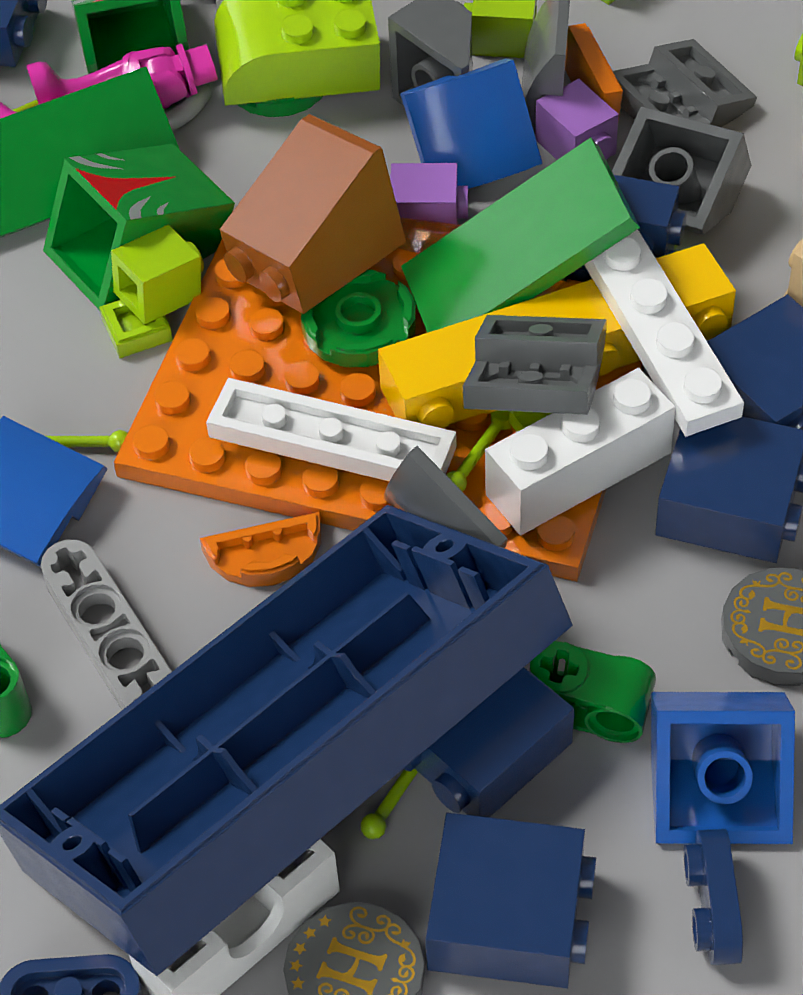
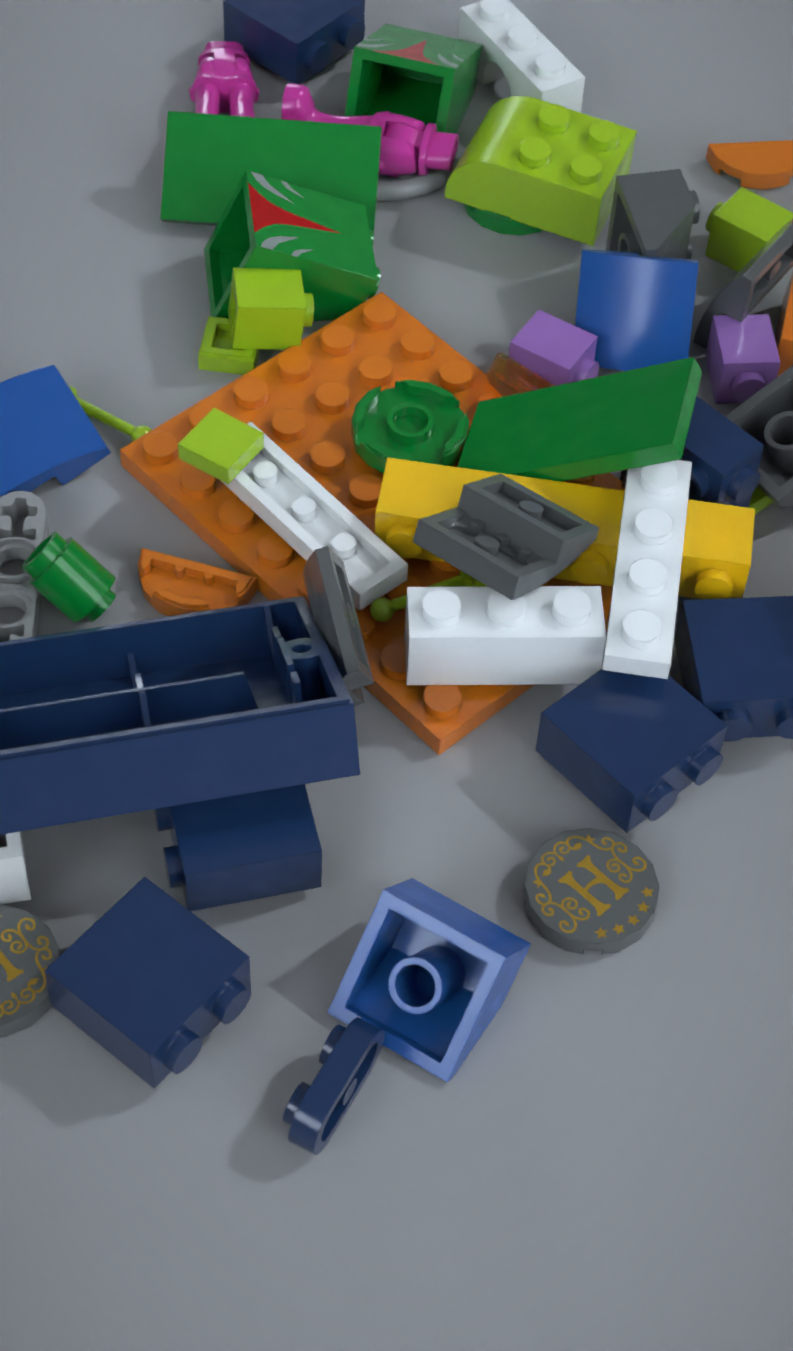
camera: 25 degrees right, 0 degrees up
(165, 595) = (70, 578): none -> green brick
(224, 410) = (221, 445): none -> lime tile
(314, 217) = (419, 320): dark orange slope -> none
(374, 824) = (102, 861): lime hinge -> none
(605, 690) = (365, 845): green piece -> none

